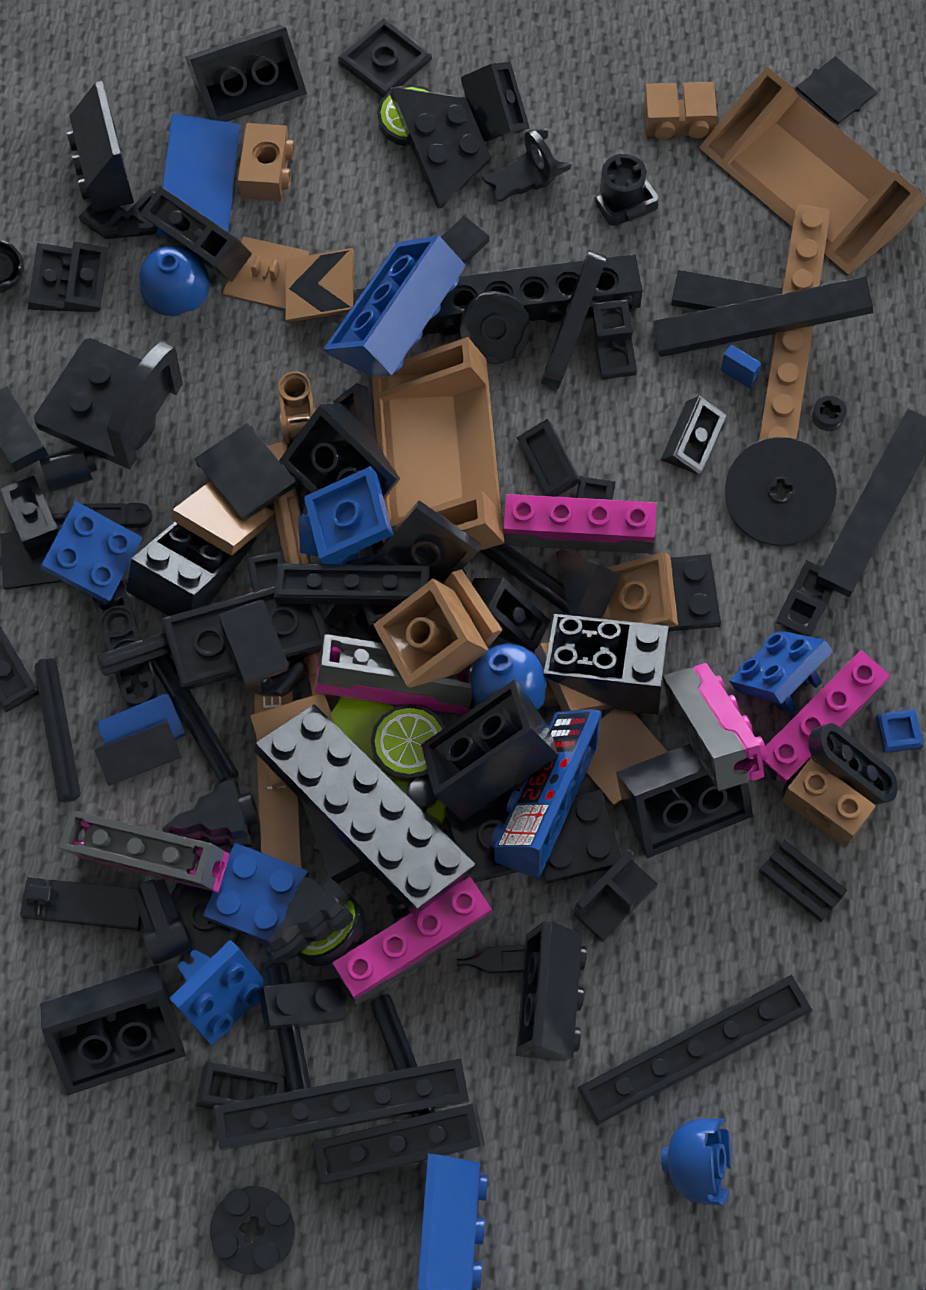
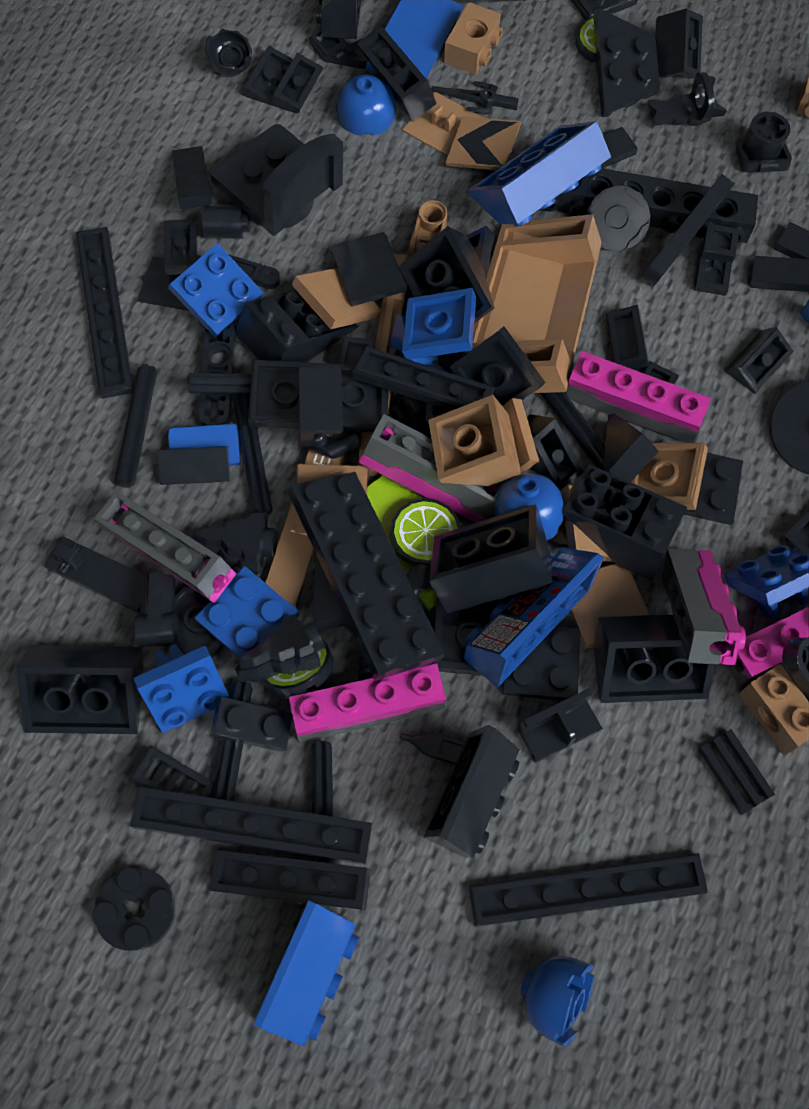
camera: 15 degrees right, 0 degrees up
(302, 227) = (486, 98): none -> black piece

